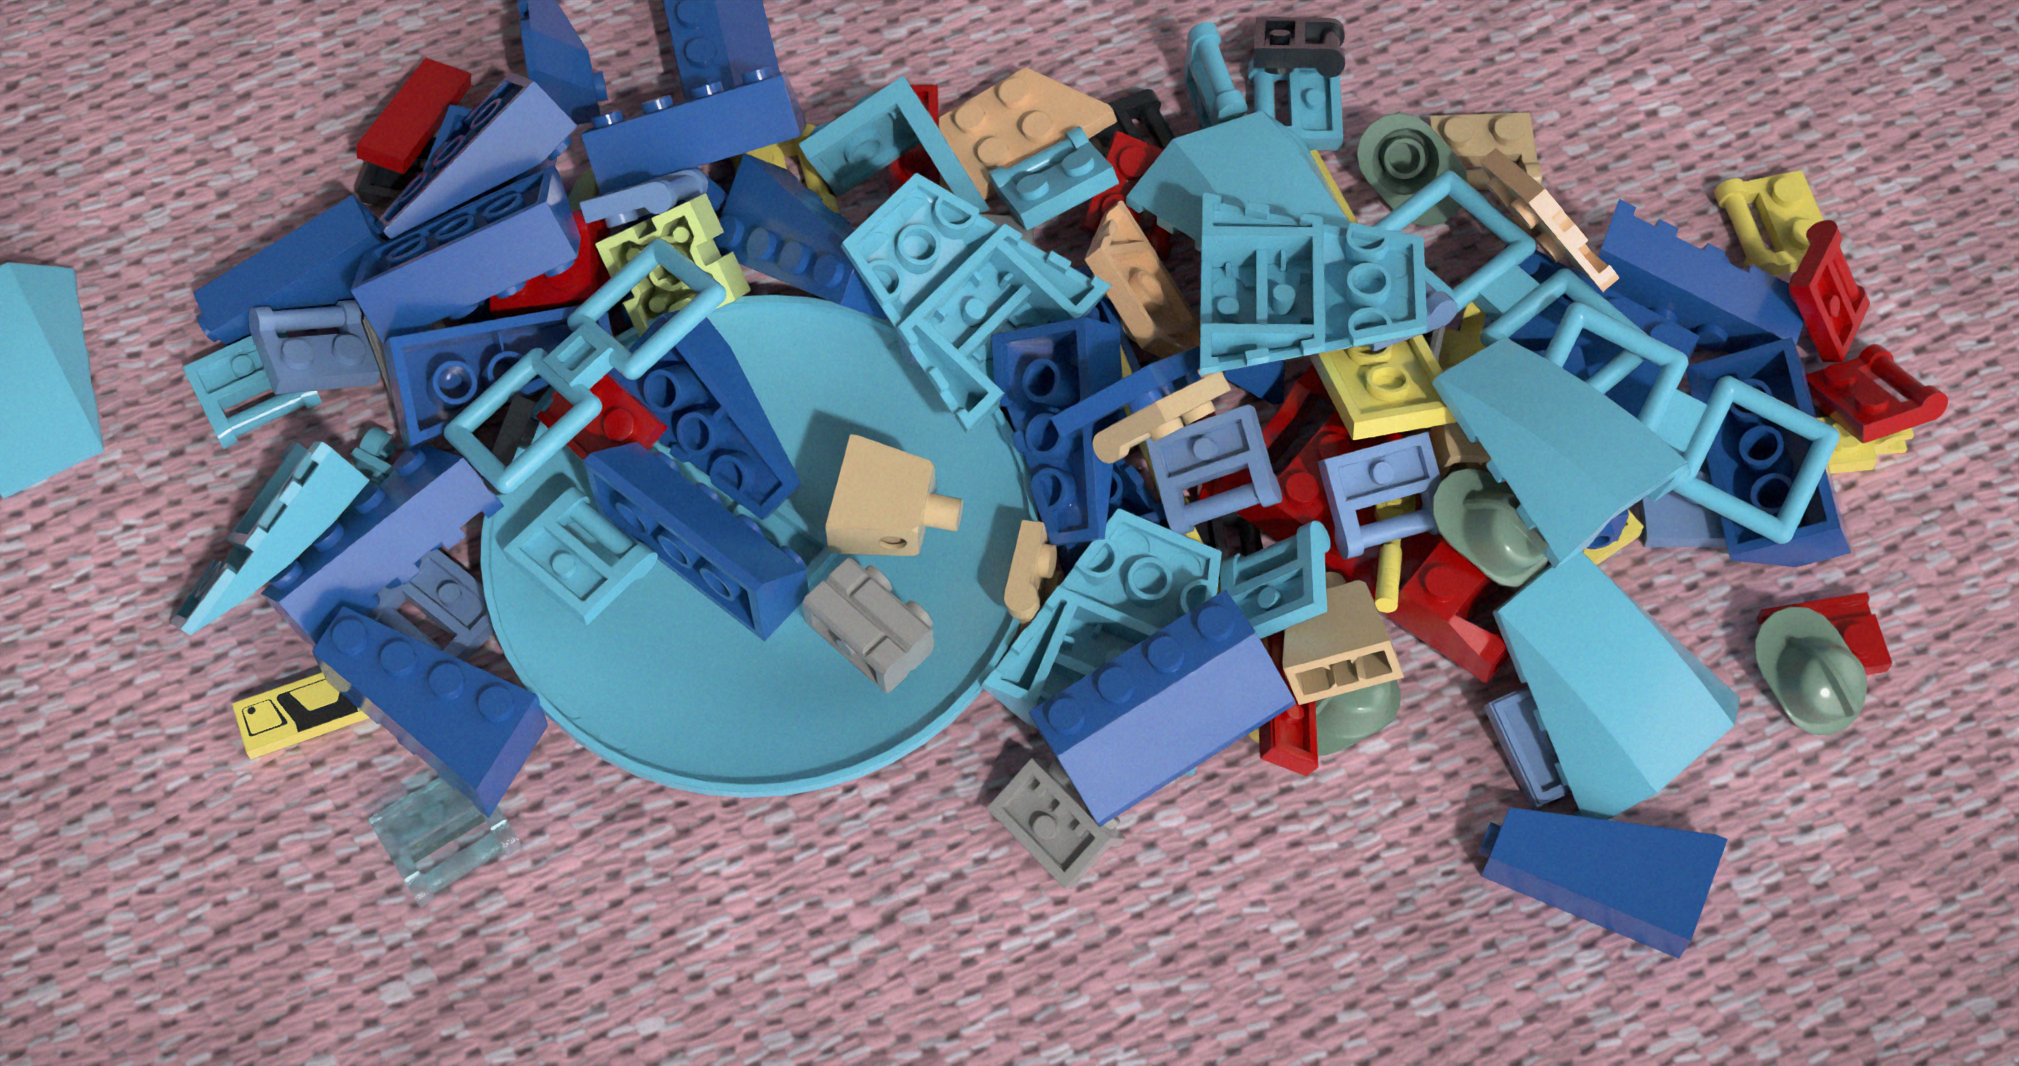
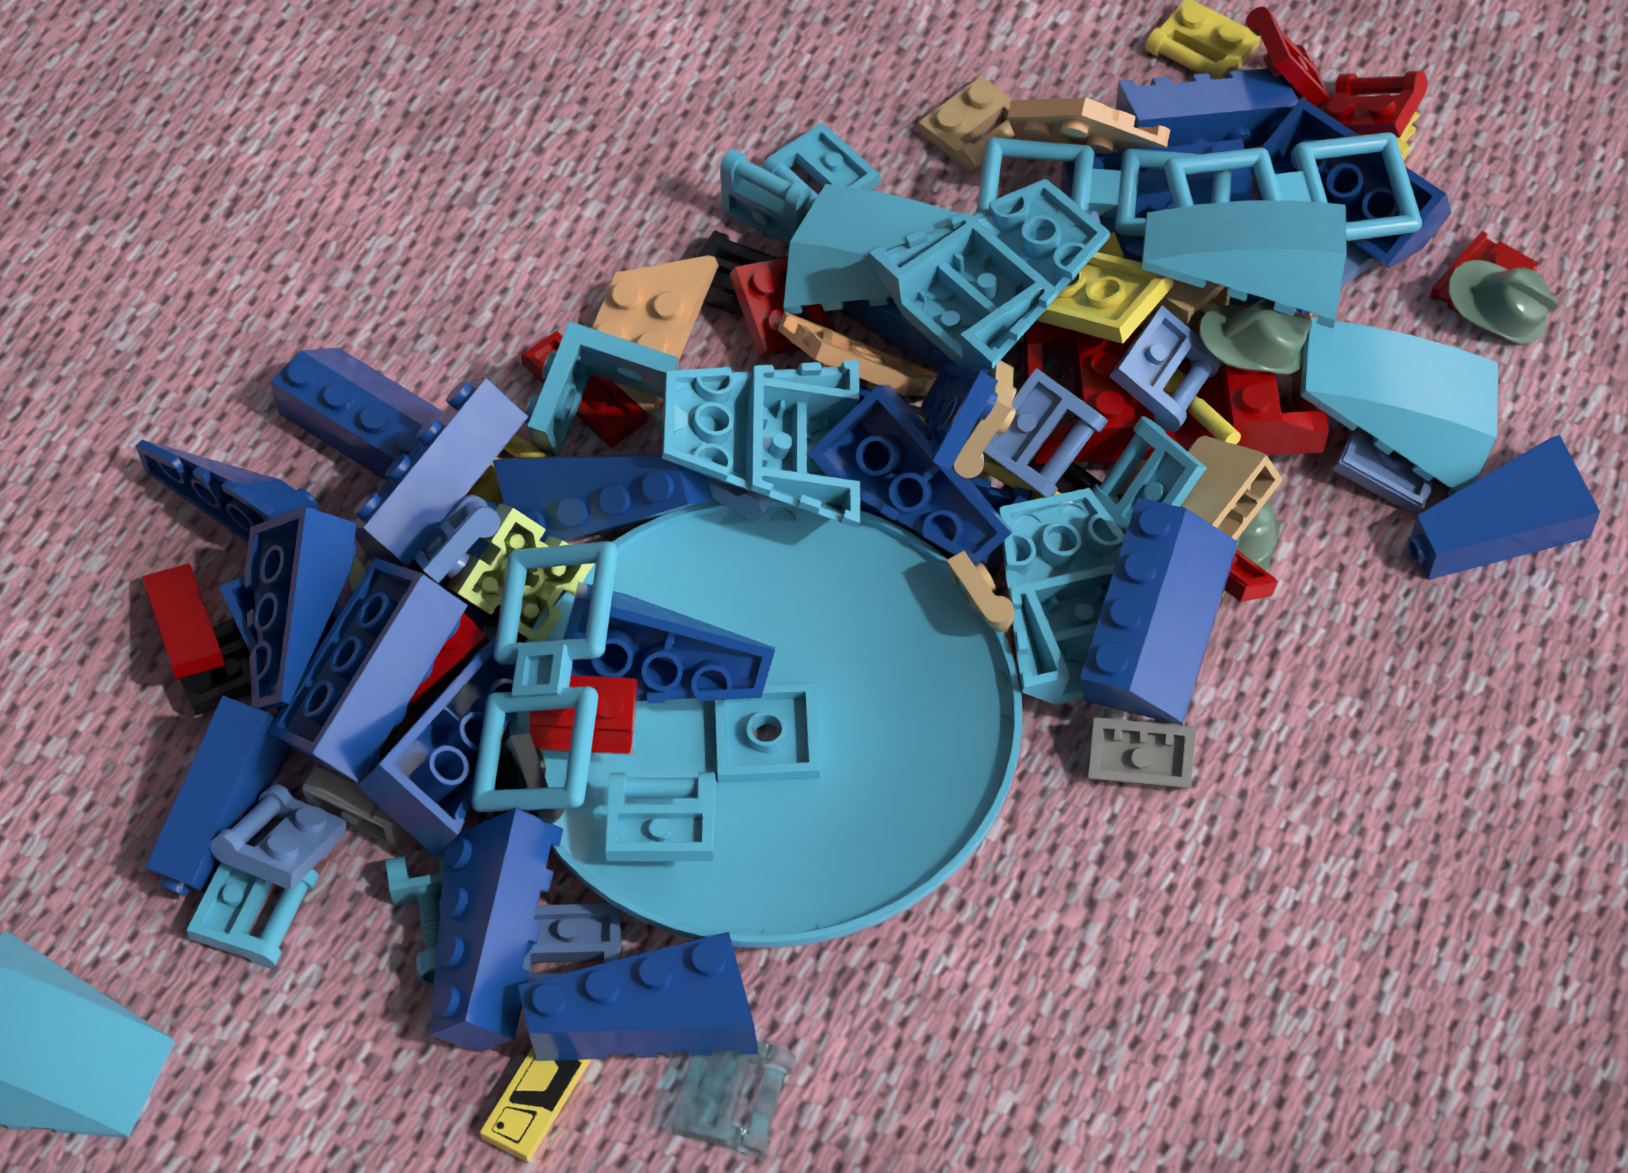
camera: 40 degrees left, 5 degrees down
(283, 521) = (395, 987): medium azure wedge -> none
(697, 536) = (740, 738): blue slope -> none
(869, 623) = (914, 705): light grey brick -> none
(886, 502) = (841, 617): tan torso -> none
(1053, 179) = (732, 331): medium azure plate -> none
(1282, 46) = (789, 131): black plate -> none
(1403, 156) = (943, 159): sand green piece -> none

